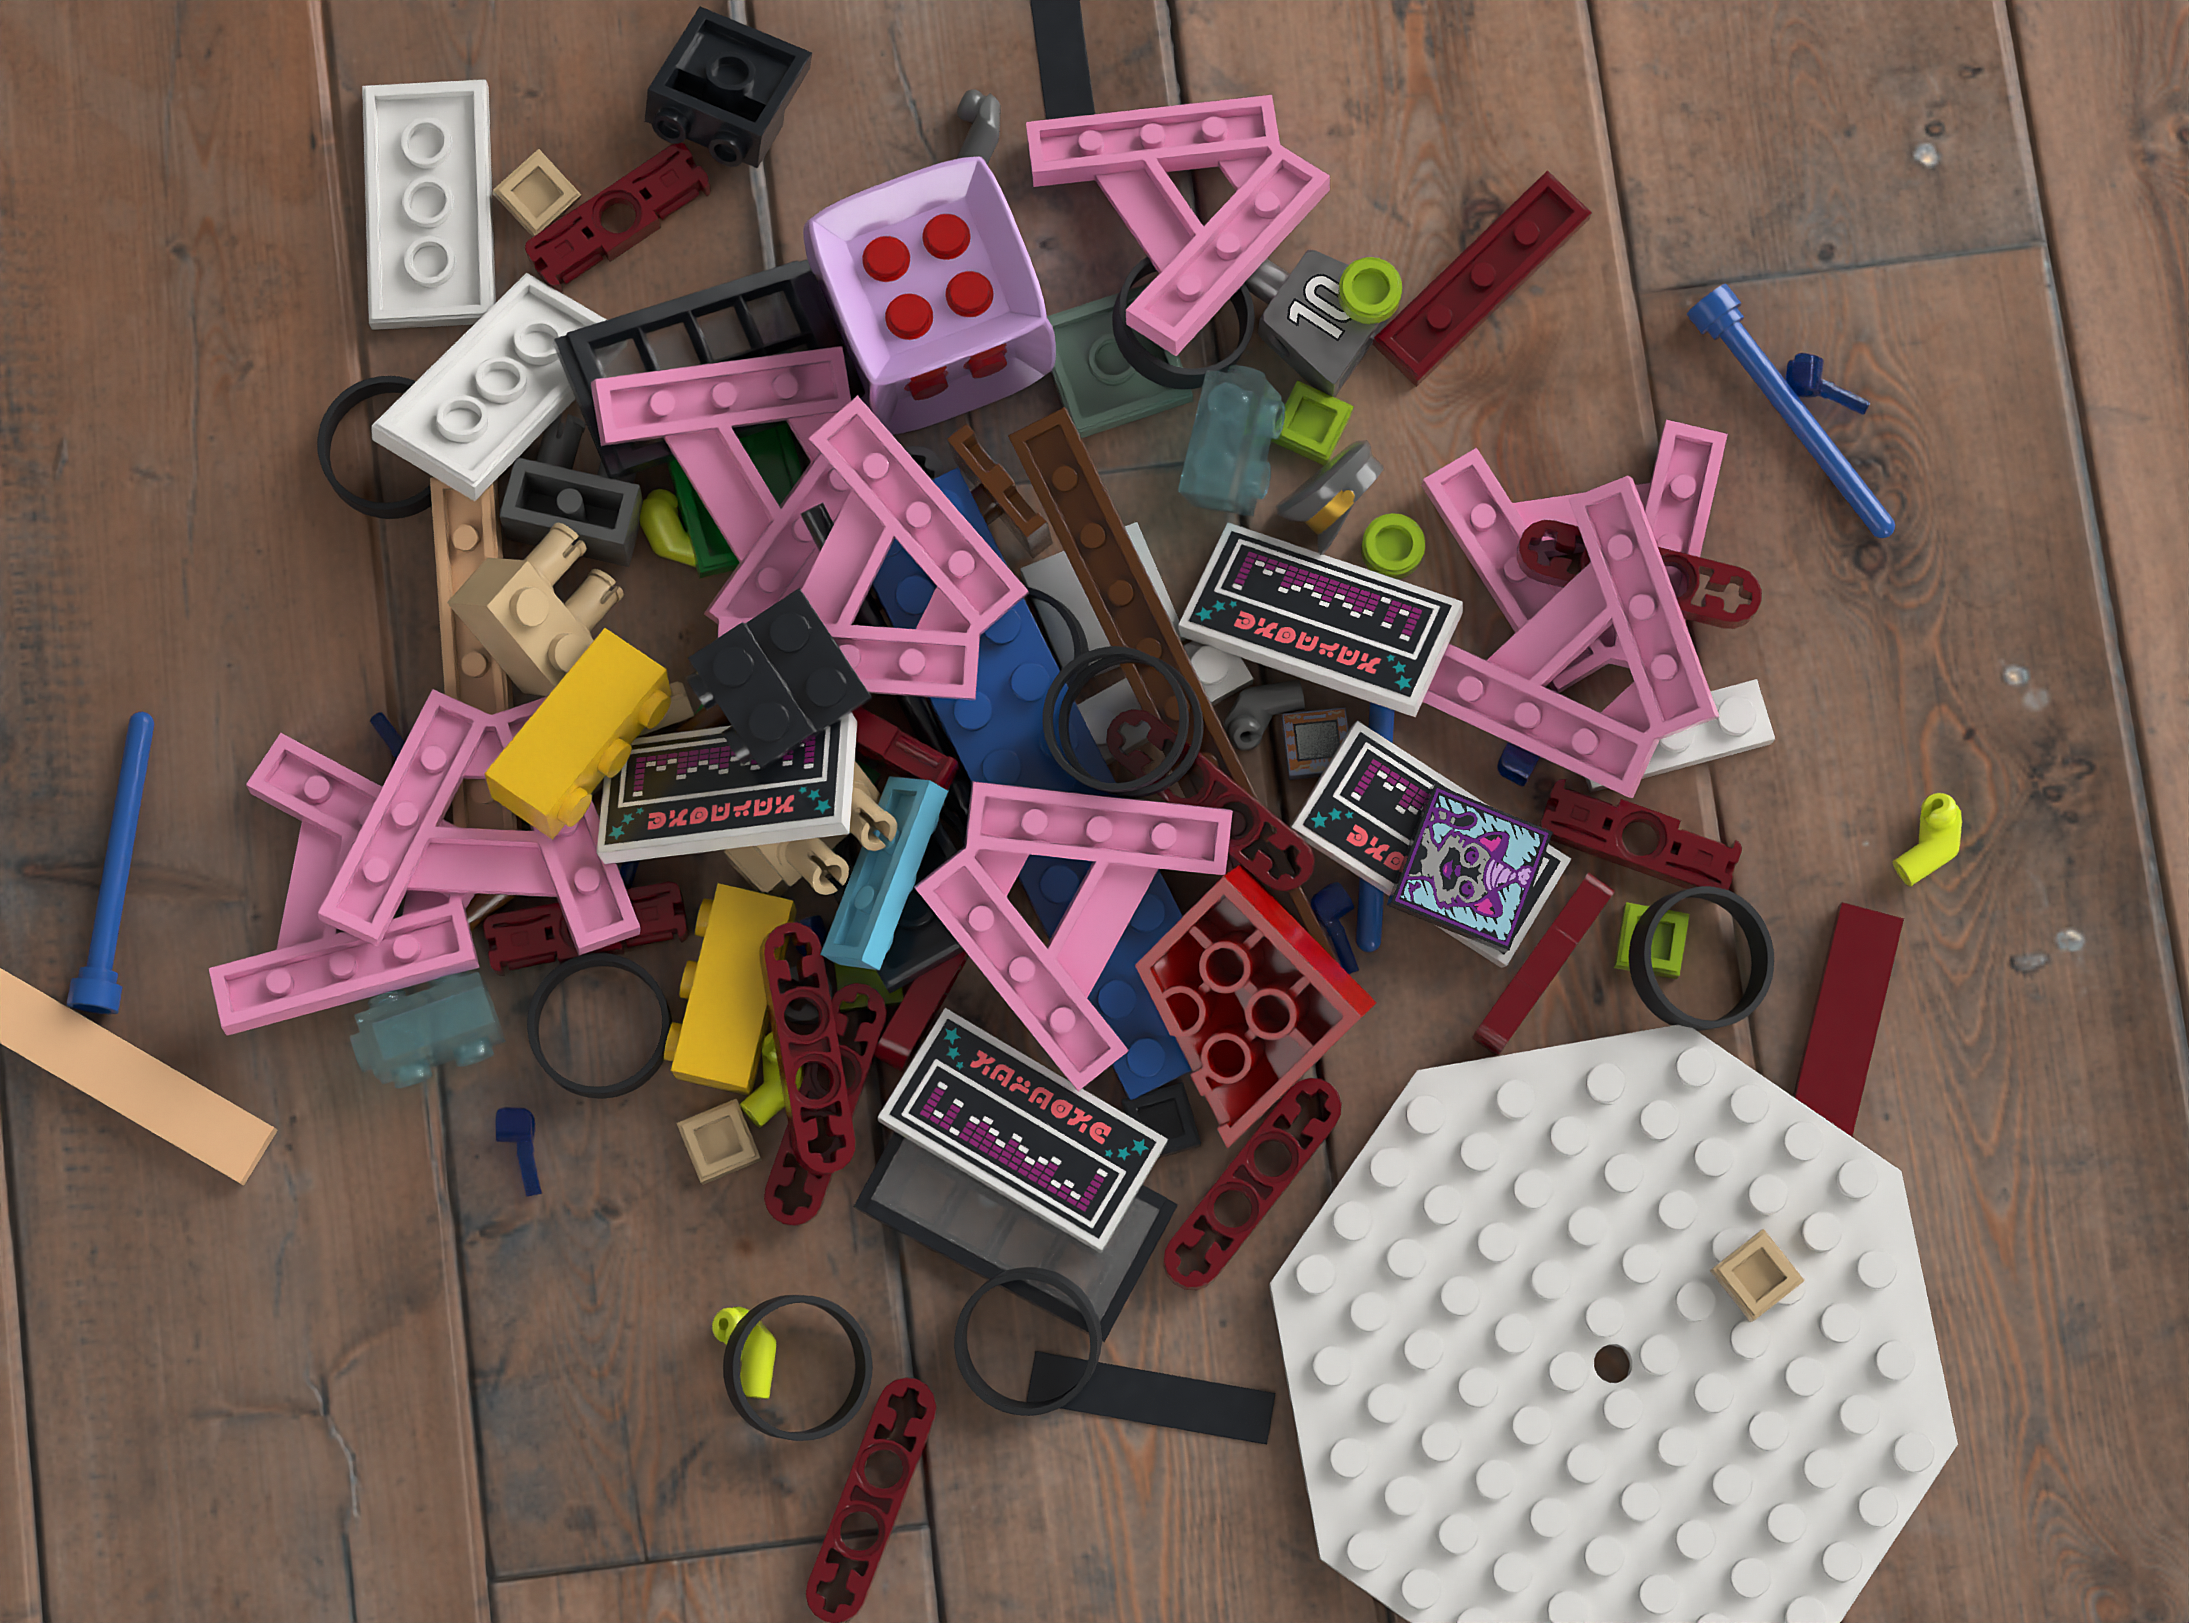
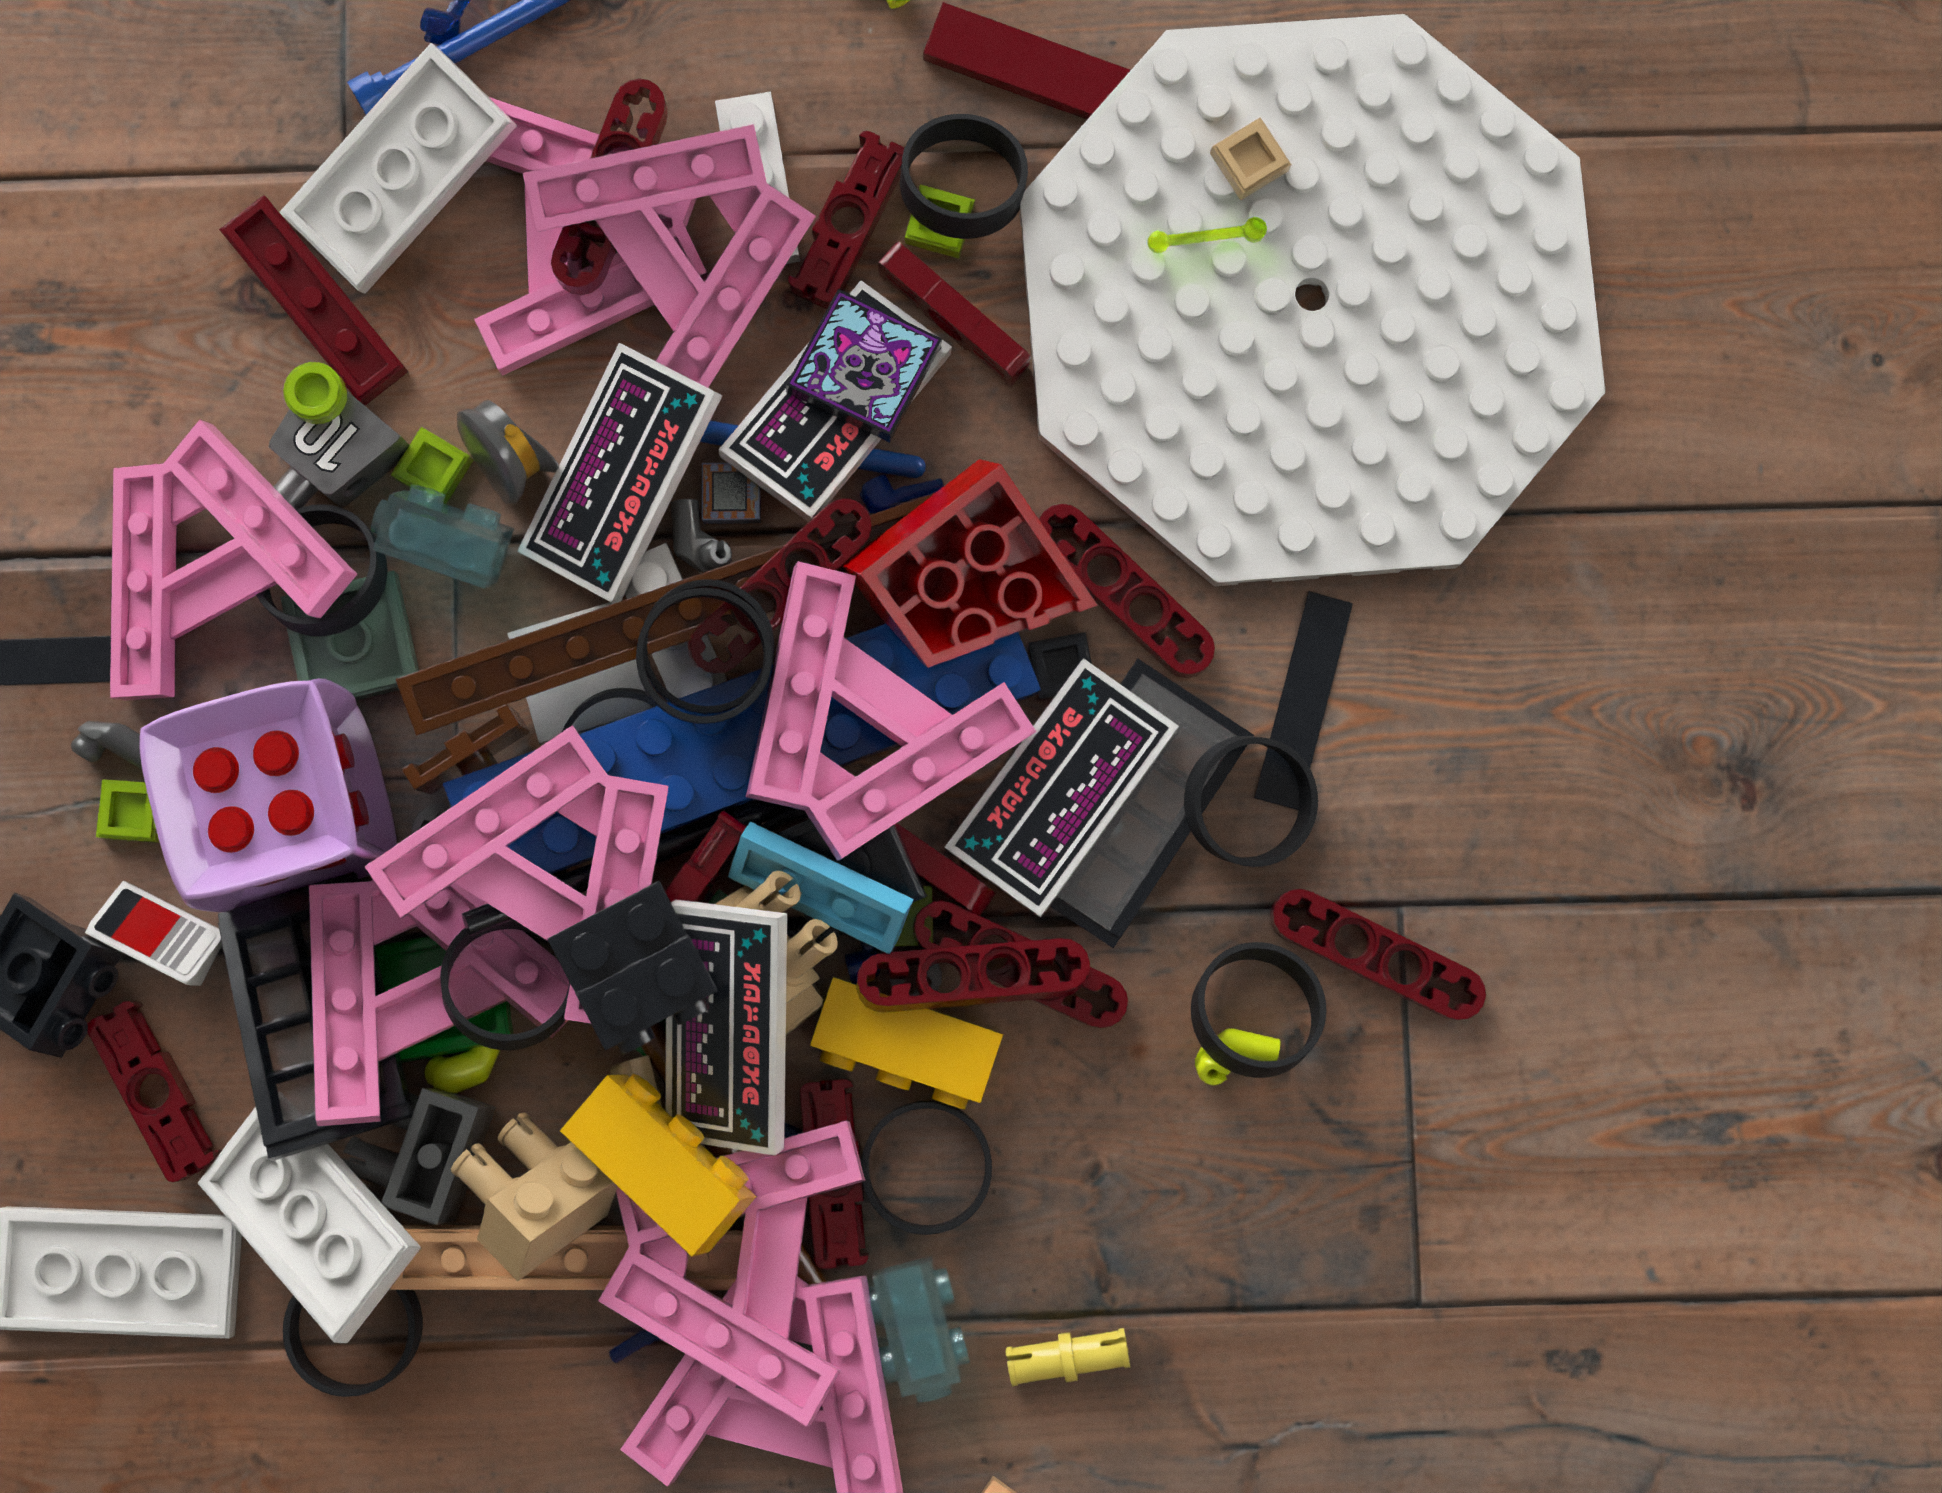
camera: 85 degrees left, 5 degrees up
(408, 1195) = (1067, 1357): none -> light yellow pin
(519, 1127) = (1012, 1249): clear blue hand -> none
(536, 193) = (120, 1167): tan tile -> none
(693, 549) = (481, 1036): none -> black tyre
(719, 1141) = (1042, 1065): tan tile -> none
(768, 1098) = (1006, 1015): neon yellow arm -> none
(781, 200) = (157, 934): none -> slope
(907, 149) = (125, 812): none -> lime tile
(1393, 546) = (555, 406): lime tile -> none
(1516, 764) = (768, 319): clear blue hand -> none
(1635, 349) = (398, 168): none -> white tile
(1675, 1286) = (1252, 231): none -> clear neon green hinge

